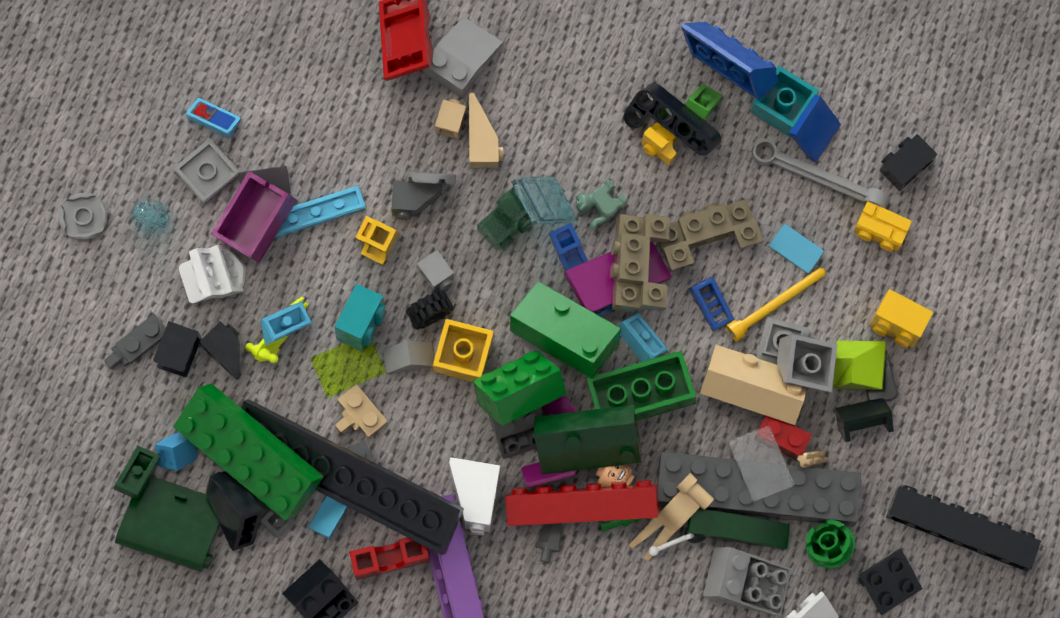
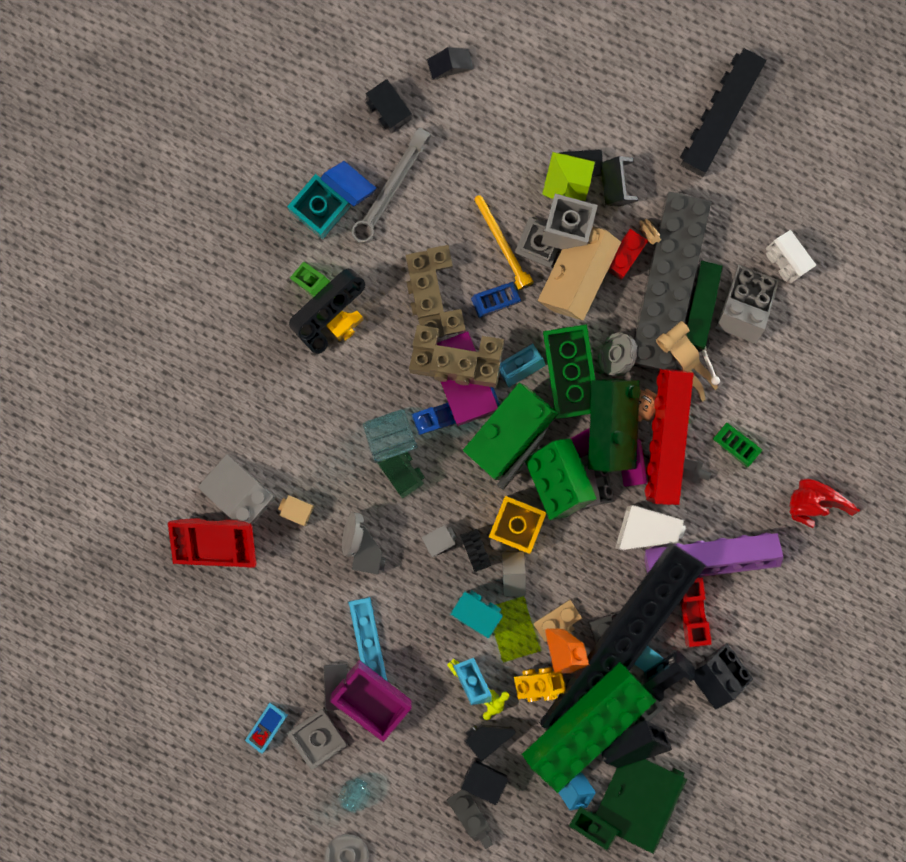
camera: 80 degrees left, 10 degrees up
(212, 273) = (418, 742): white piece -> none
(290, 394) = (539, 684): none -> yellow brick
(315, 534) = (667, 673): none -> black panel
(329, 414) = (566, 651): none -> orange slope
(377, 238) = (401, 590): yellow brick -> none
(483, 141) = (322, 483): tan slope -> none
(516, 334) = (509, 475): none -> dark grey bar
(573, 605) = (739, 456): none -> green slope
(601, 200) = (391, 383): sand green animal -> none
(668, 440) = (618, 354): none -> light grey tile
(730, 58) = (275, 248): blue slope -> none
(761, 463) = (652, 276): clear piece -> none
(796, 248) = (455, 217): medium azure slope -> none
(830, 544) = (727, 227): green cone -> none
(882, 227) = (445, 138): yellow brick -> none
(890, 581) = (760, 182): black hinge -> none
(900, 319) = (534, 135): yellow brick -> none
(969, 223) = (450, 62): none -> black slope

